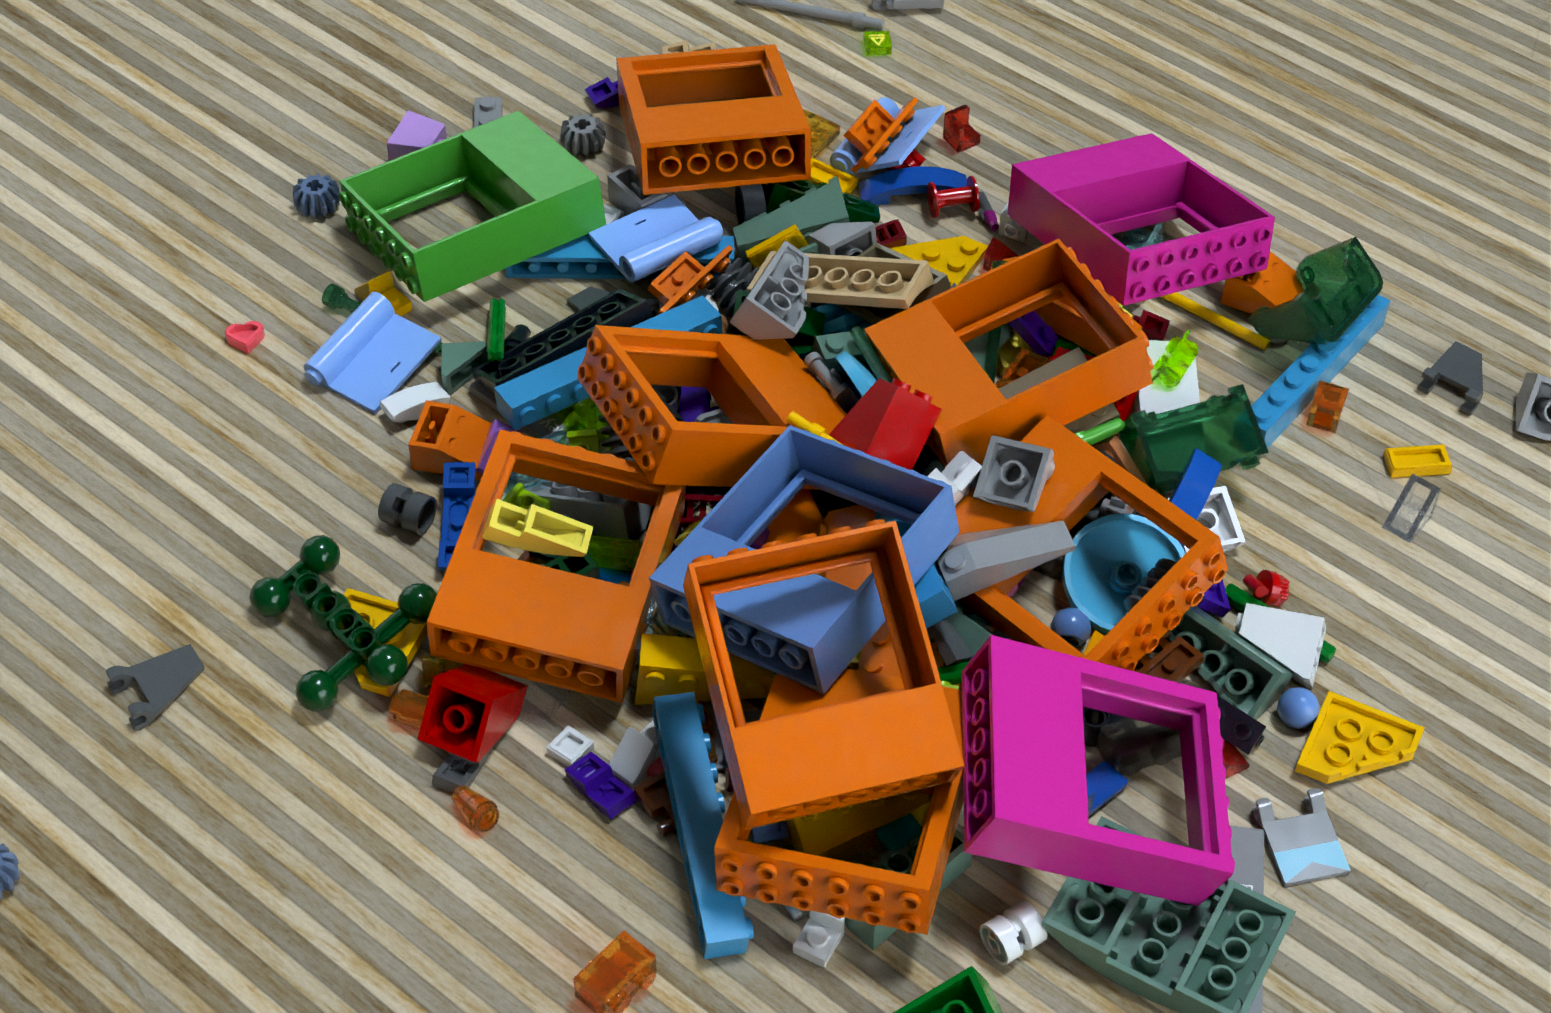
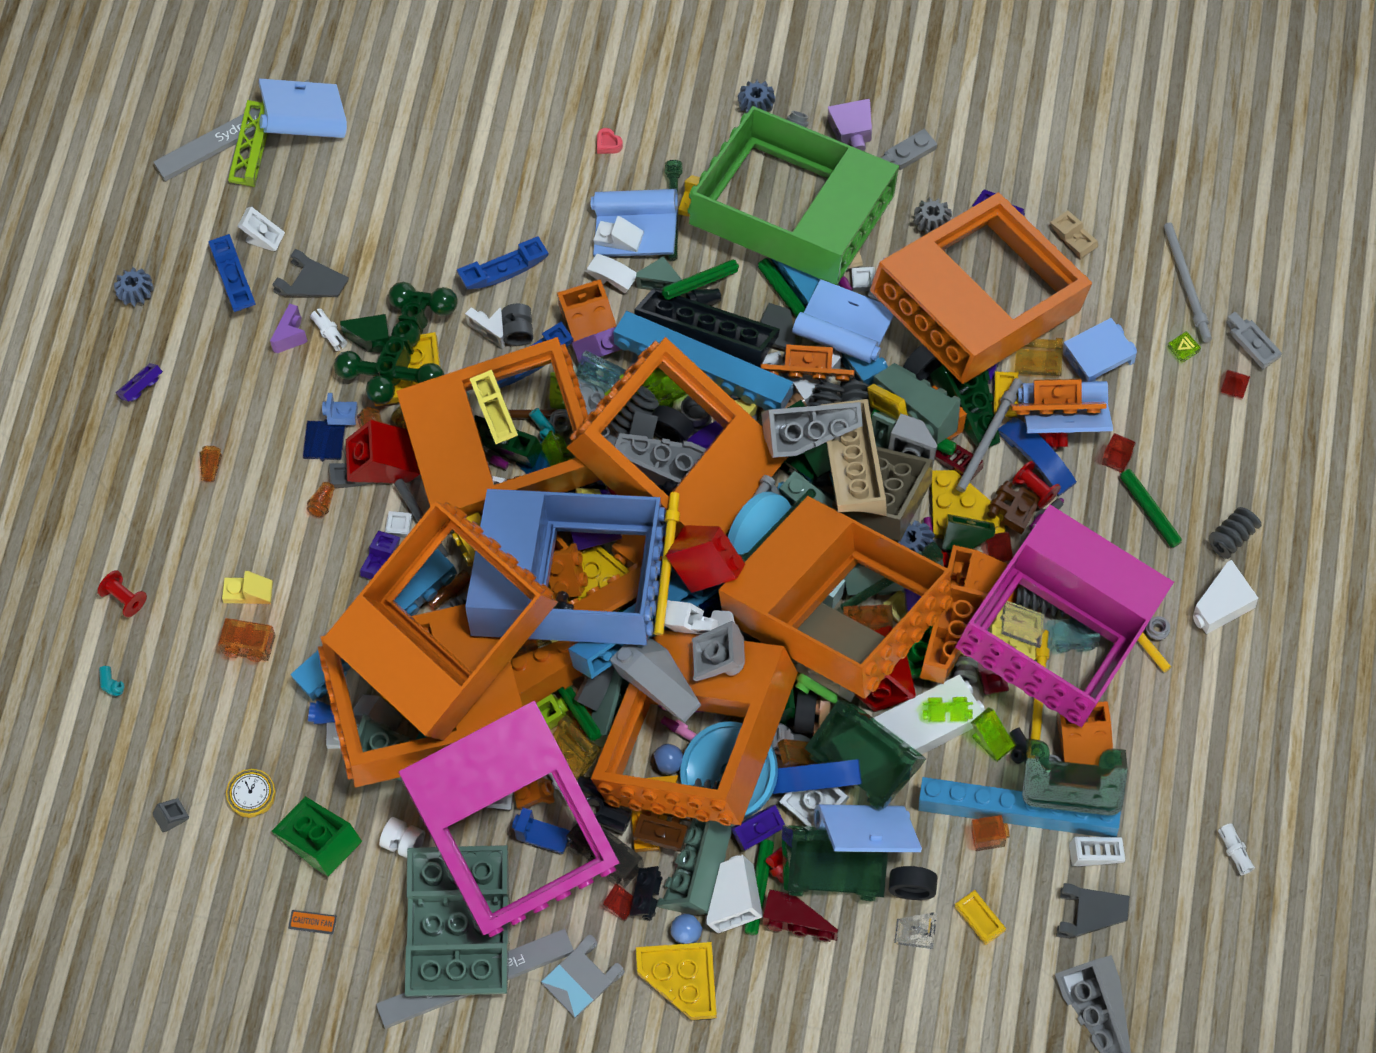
camera: 65 degrees right, 15 degrees up
(42, 698) = (260, 230): none -> white slope
(71, 760) = (231, 273): none -> blue slope
(134, 931) = (134, 386): none -> dark purple plate
(212, 735) = (287, 332): none -> medium lavender slope
(243, 694) = (328, 329): none -> white pin
(288, 654) = (367, 332): none -> dark green slope
(317, 486) = (503, 267): none -> blue slope
(321, 905) = (209, 462): none -> clear orange cone
(369, 733) = (339, 412): none -> medium blue bracket
(379, 371) = (619, 235): none -> white slope
(390, 537) = (489, 328): none -> white slope
(390, 772) = (323, 441): none -> clear blue piece
(536, 951) = (248, 590): none -> light yellow slope
(569, 280) = (781, 286): none -> green axle
(581, 719) = (413, 506): none -> dark grey bar
(777, 943) = (320, 713): none -> blue cone
(839, 91) = (1099, 350): none -> light blue panel
(844, 175) = (1009, 397): none -> light grey bar
(943, 29) = (1235, 384): none -> clear red slope
(964, 220) = (1019, 512): none -> reddish brown plate
(972, 261) = (965, 532): none -> dark green slope
(1006, 138) = (1151, 508): none -> green axle
(1035, 602) = (678, 727): none -> piece
(1107, 94) = (1233, 531): none -> dark grey piece
(1174, 125) = (1224, 600): none -> white slope
(1214, 354) = (991, 734): none -> clear neon green slope
(1239, 342) = (1018, 752): none -> black arm
(1280, 477) = (867, 828): none -> light blue door
(1296, 530) = (814, 865): none -> clear green windscreen
(1342, 600) = (794, 915): none -> dark red slope
(1357, 484) = (913, 883): none -> black tyre
(1391, 343) = (1086, 859): none -> white slope
(1448, 244) = (1236, 849): none -> white pin

